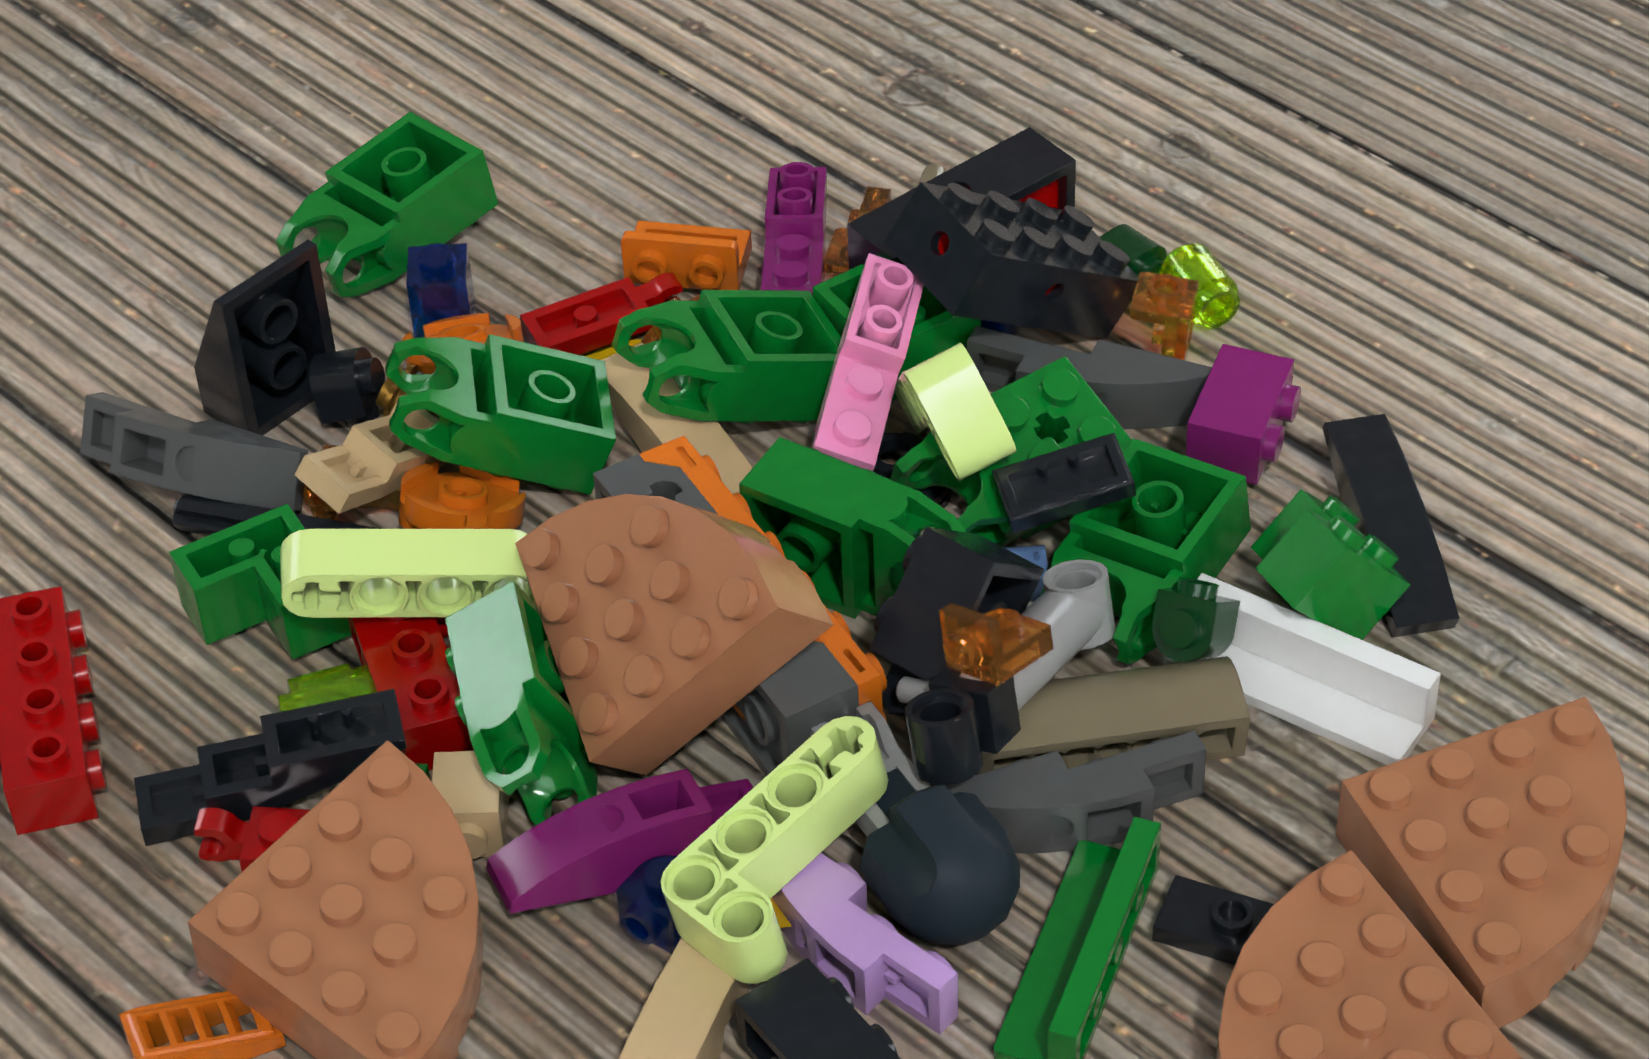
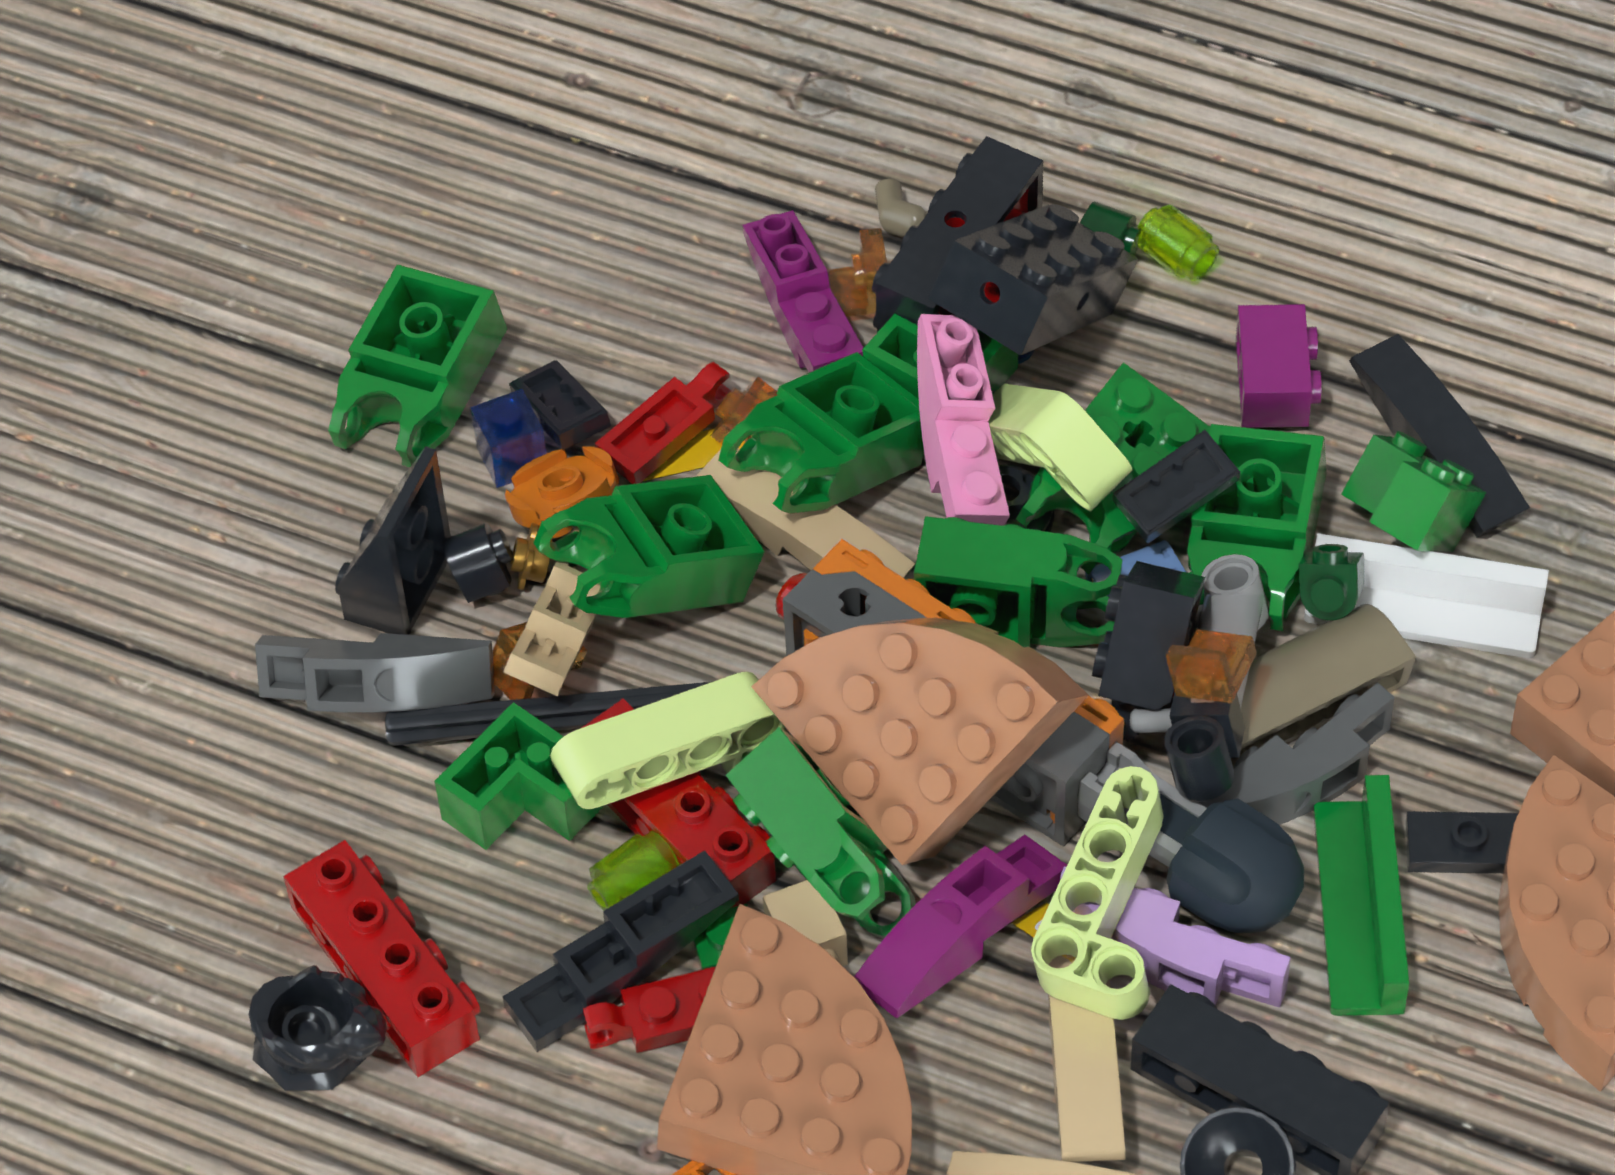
camera: 20 degrees left, 10 degrees up
(459, 499) = (646, 651): orange plate -> none
(508, 276) = (562, 404): none -> black plate
(644, 907) = (1007, 968): clear blue plate -> none
(695, 254) = (717, 332): orange bracket -> none
(1132, 383) = (1169, 358): dark grey slope -> none
(1170, 306) = (1172, 282): clear orange bracket -> none

